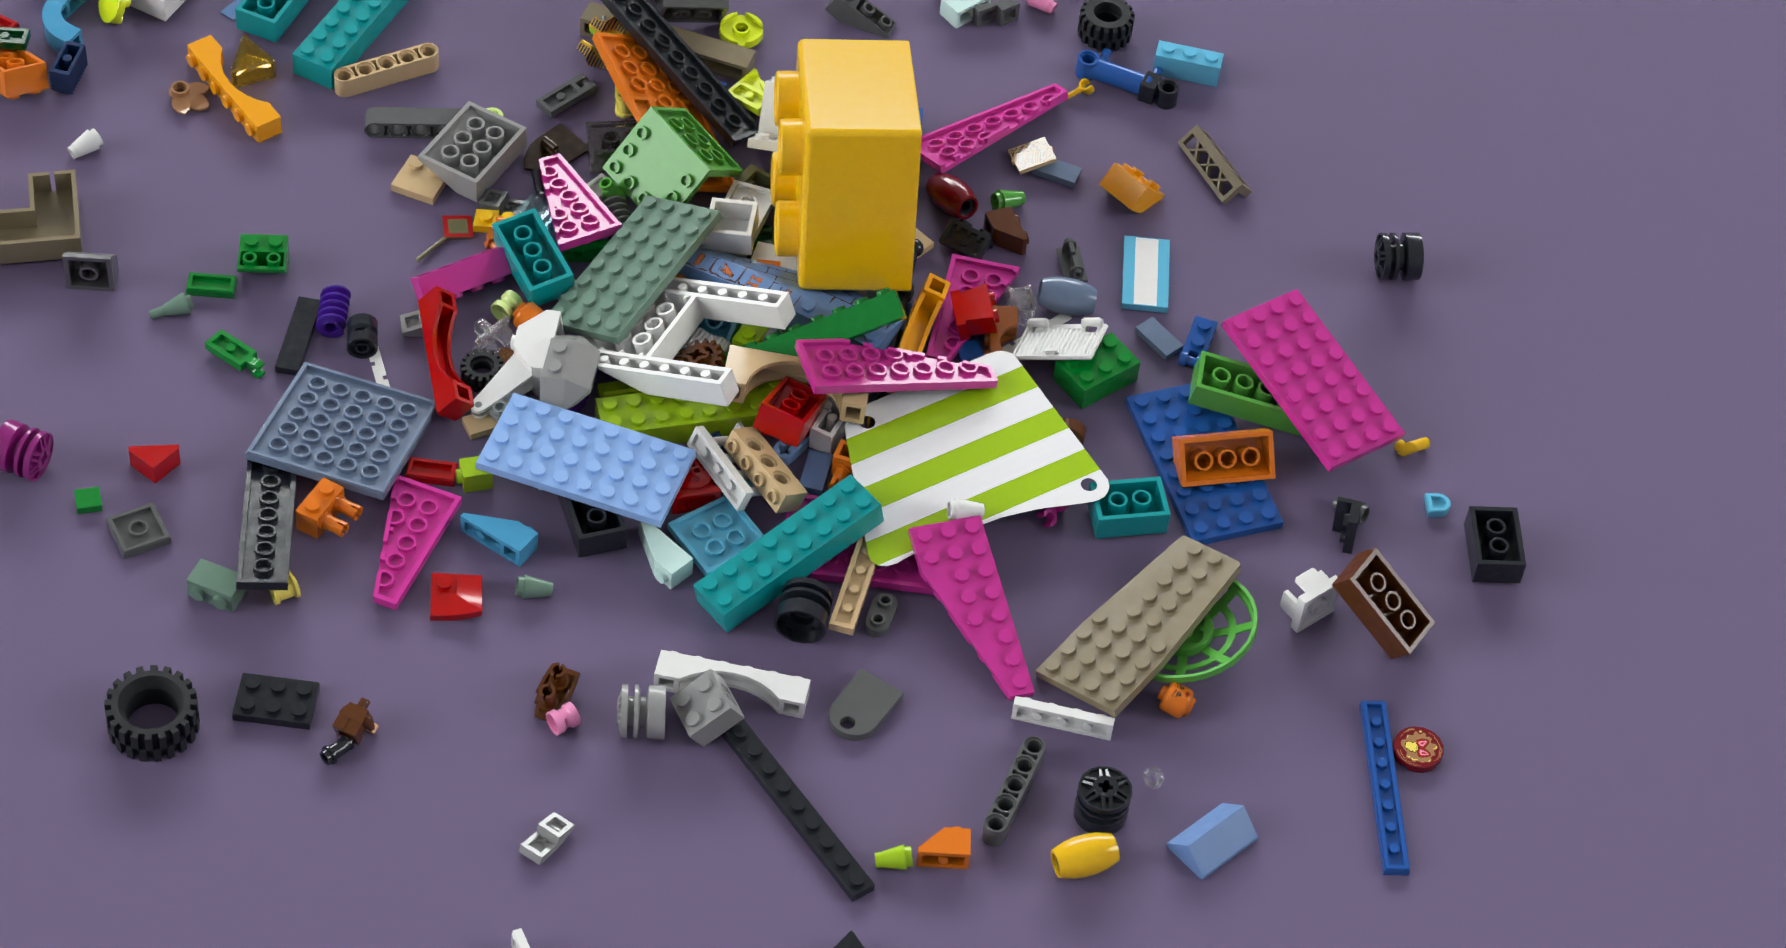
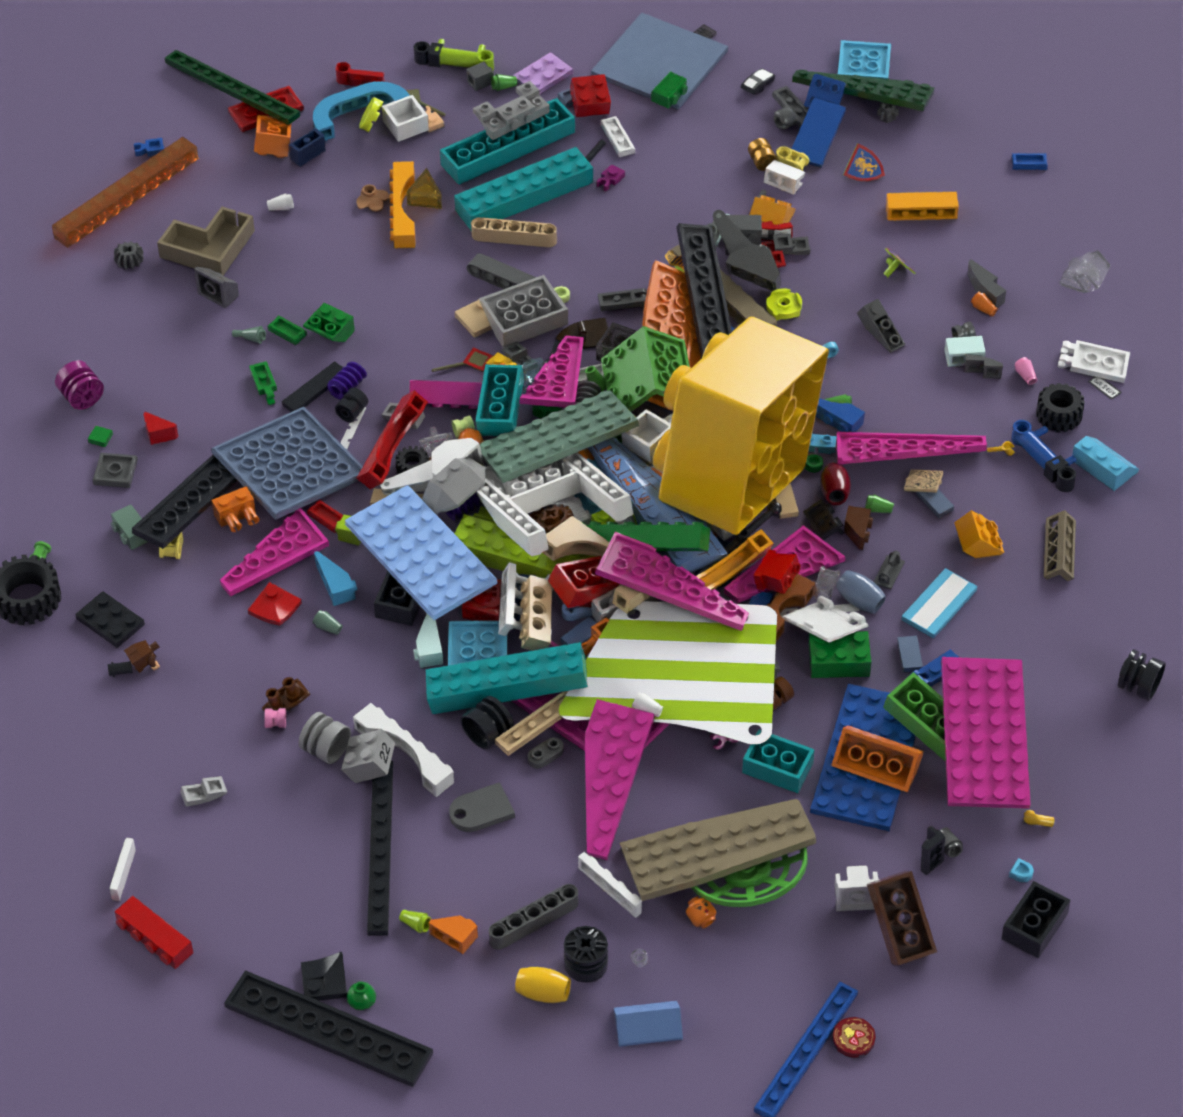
camera: 40 degrees right, 0 degrees up
(129, 660) = (40, 551): none -> bright green bush

